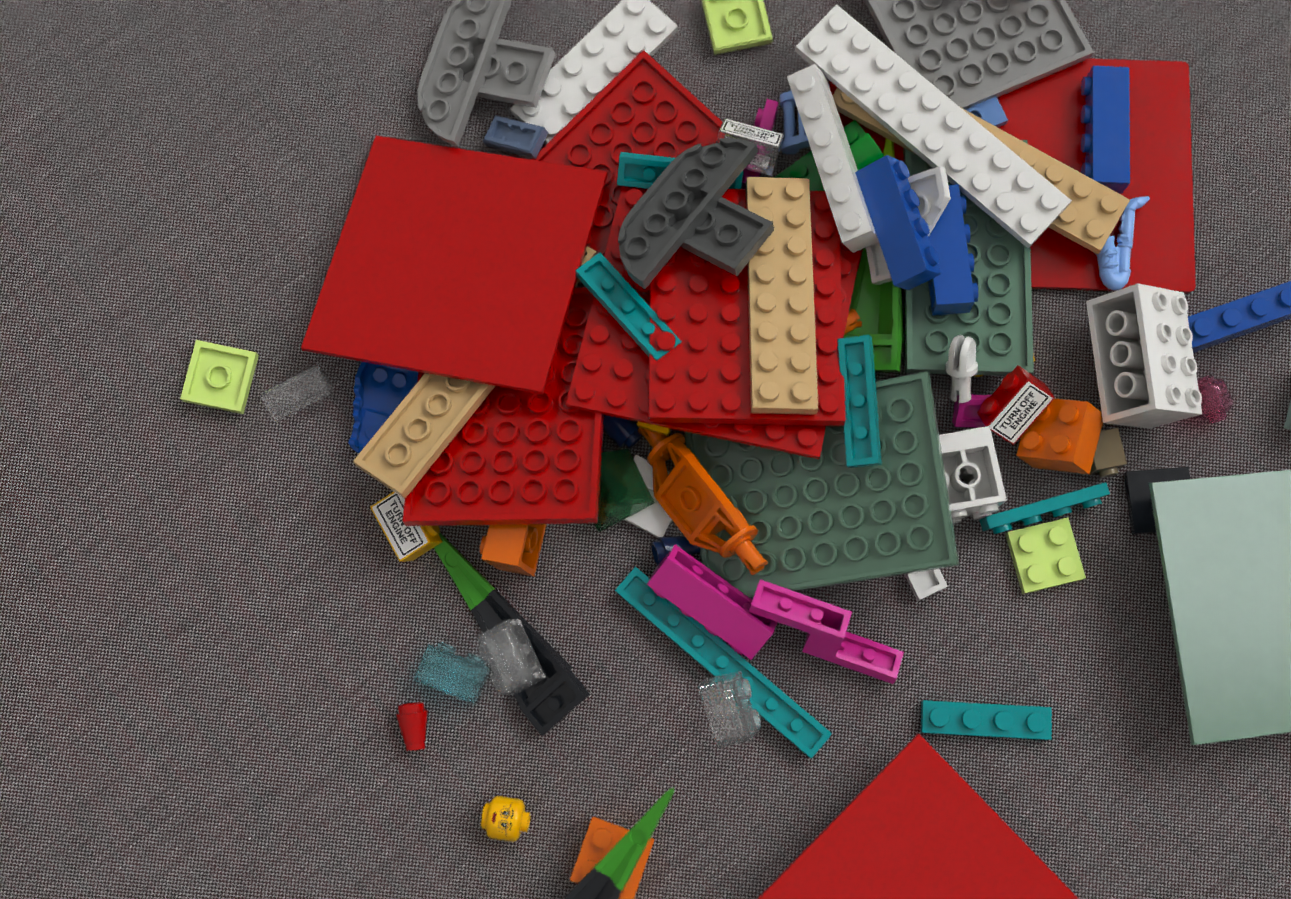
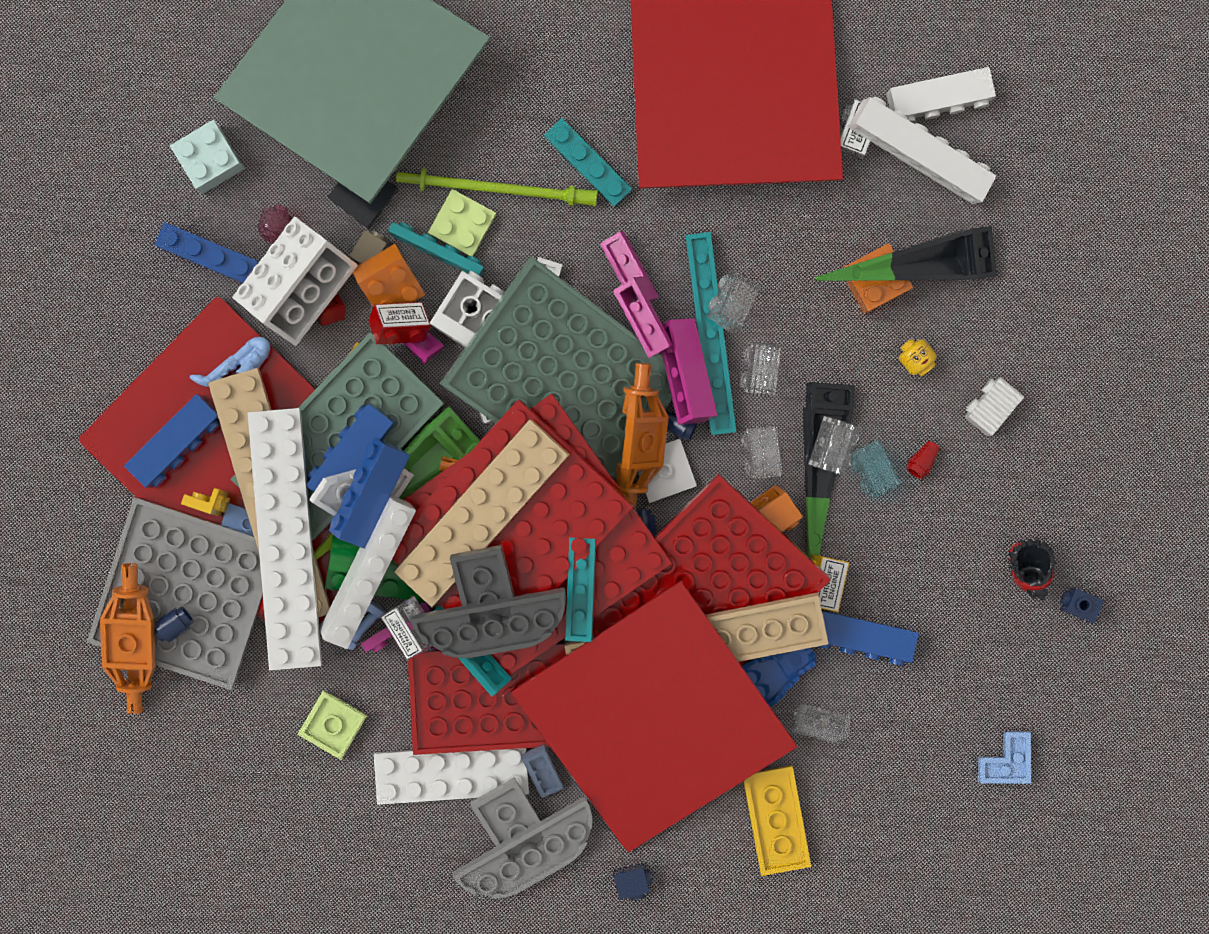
camera: 135 degrees left, 10 degrees up
(80, 514) = (1015, 763): none -> light blue plate
(140, 722) = (1081, 604): none -> dark blue brick
(218, 714) = (1032, 567): none -> black hair
(219, 377) = (858, 779): yellowish green plate -> none
(262, 276) = (777, 821): none -> yellow plate
(321, 511) = (869, 637): none -> blue brick
(349, 113) = (632, 881): none -> dark blue brick
(389, 838) = (994, 406): none -> white brick
(572, 593) = (763, 452): none -> clear brick
(621, 489) = (677, 489): clear green slope -> none
(644, 670) = (761, 368): none -> clear brick
(861, 409) = (496, 404): teal plate -> none
(961, 367) = (411, 372): white arm -> none
(973, 672) = (569, 195): none -> lime bar
(1027, 99) = (213, 505): none -> yellow bracket
(1083, 369) = (333, 312): none -> red slope

